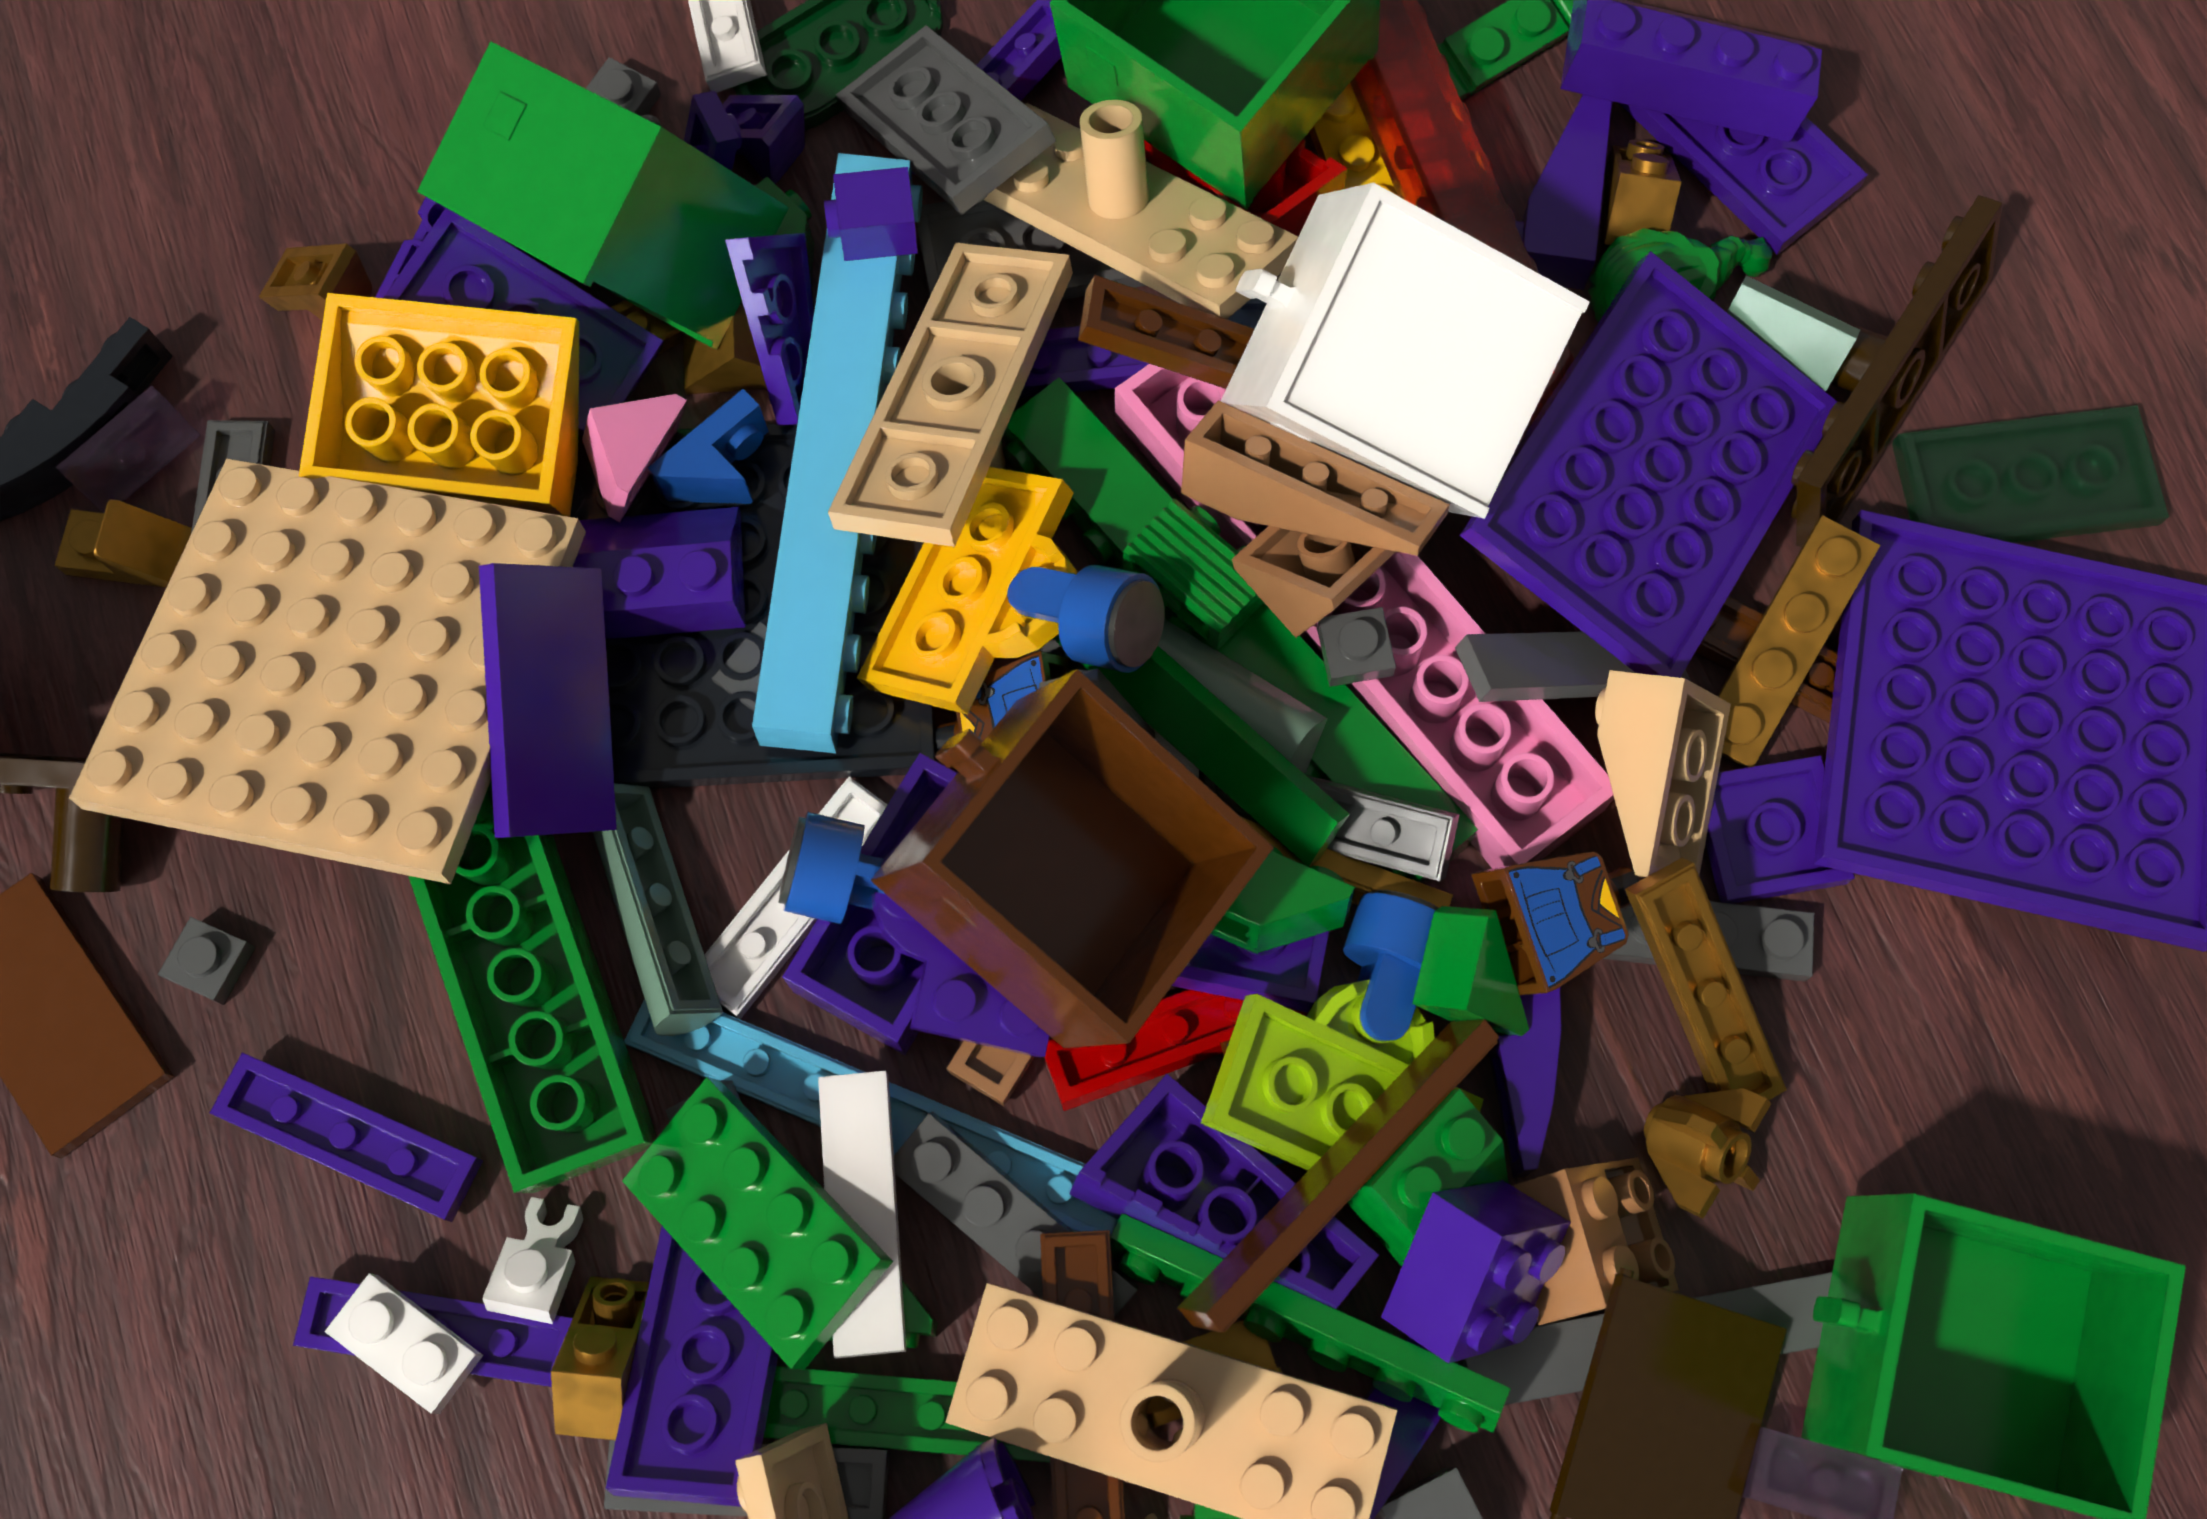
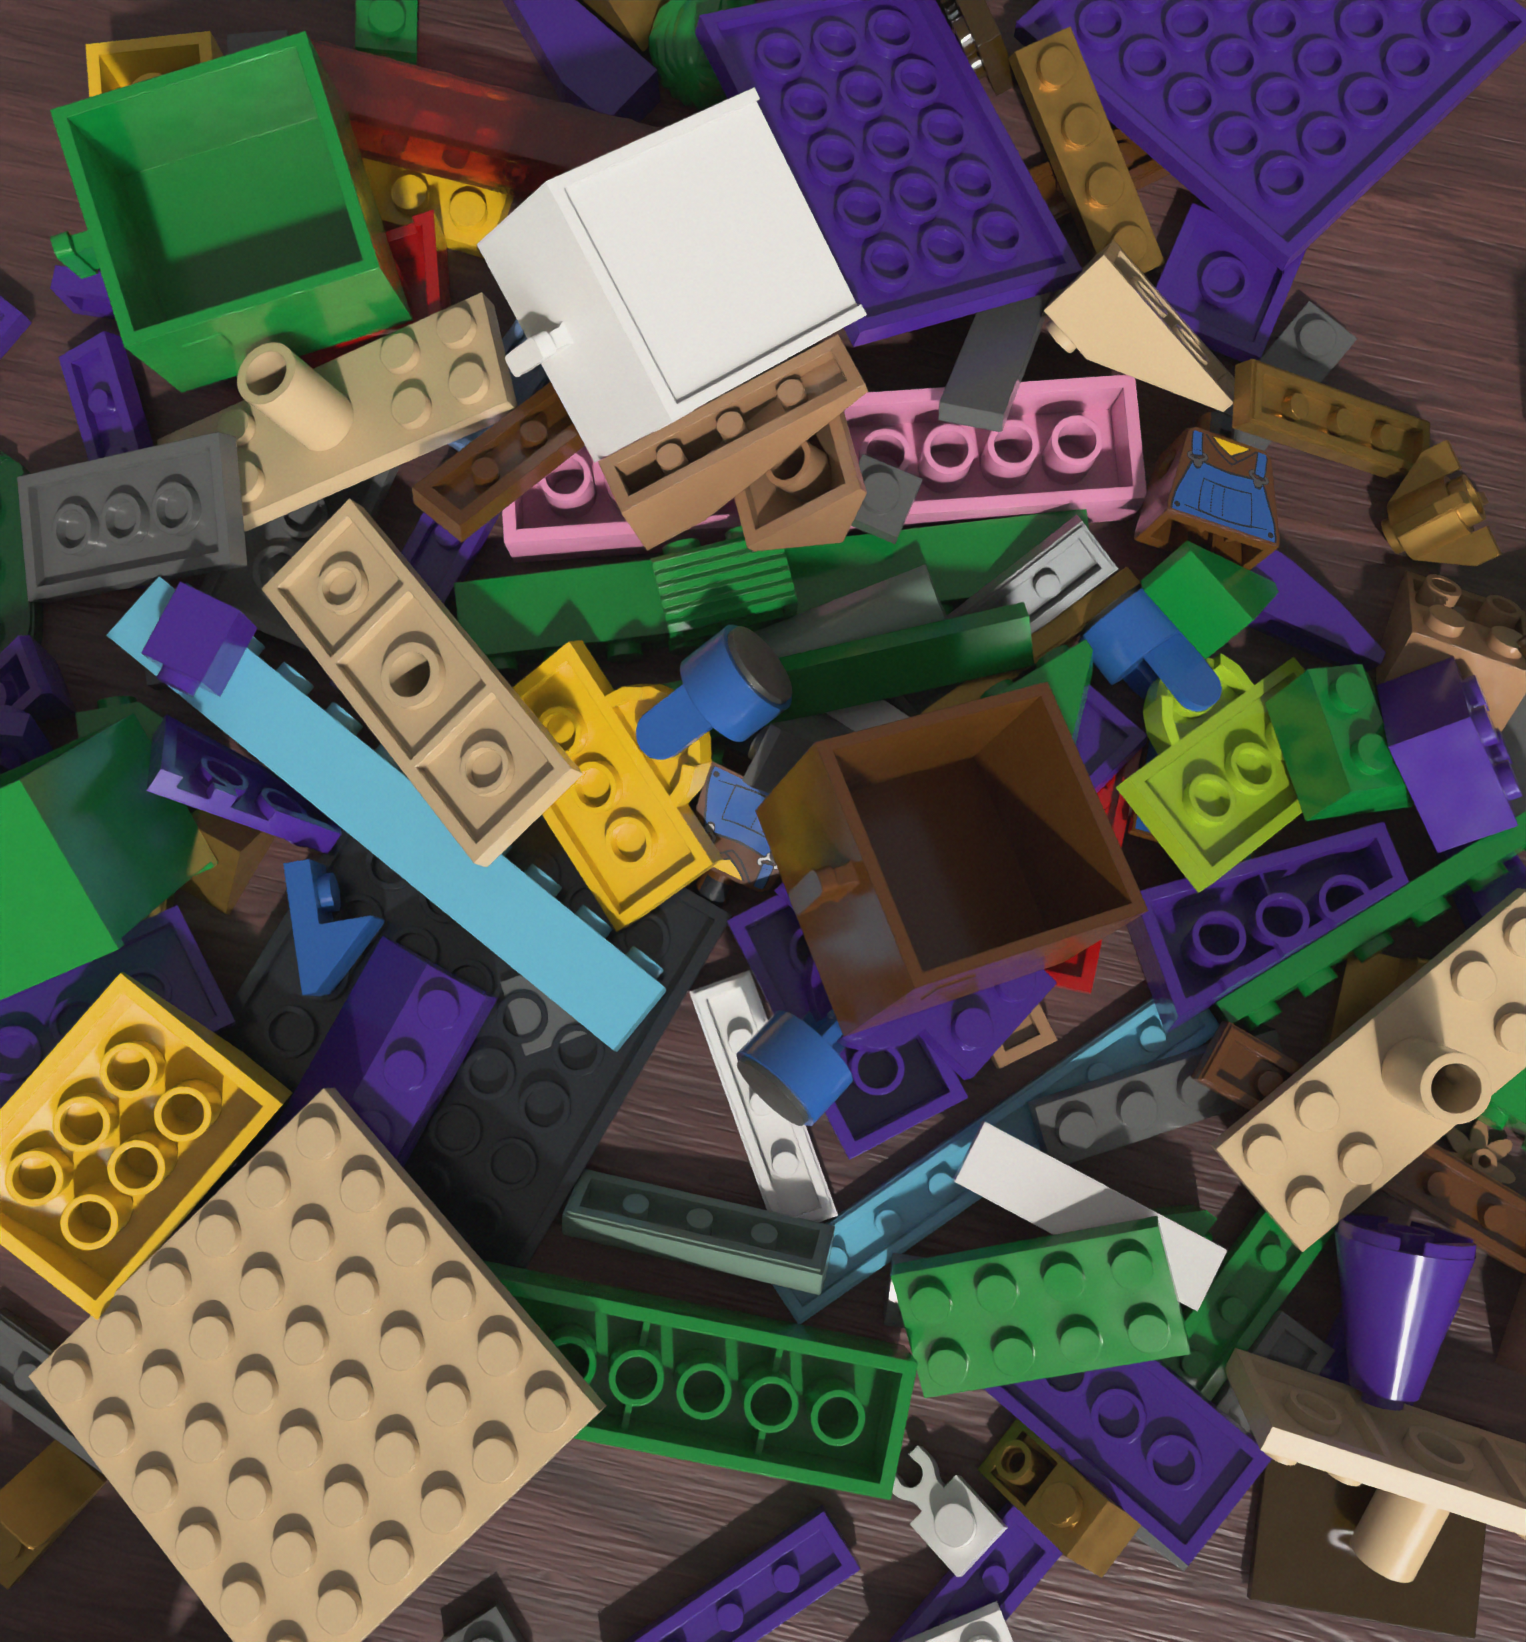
camera: 60 degrees left, 10 degrees up
(547, 699) = (480, 1218): dark purple tile -> none
(625, 442) = (265, 1002): bright pink slope -> none
(1337, 1176) = (1313, 813): reddish brown tile -> none

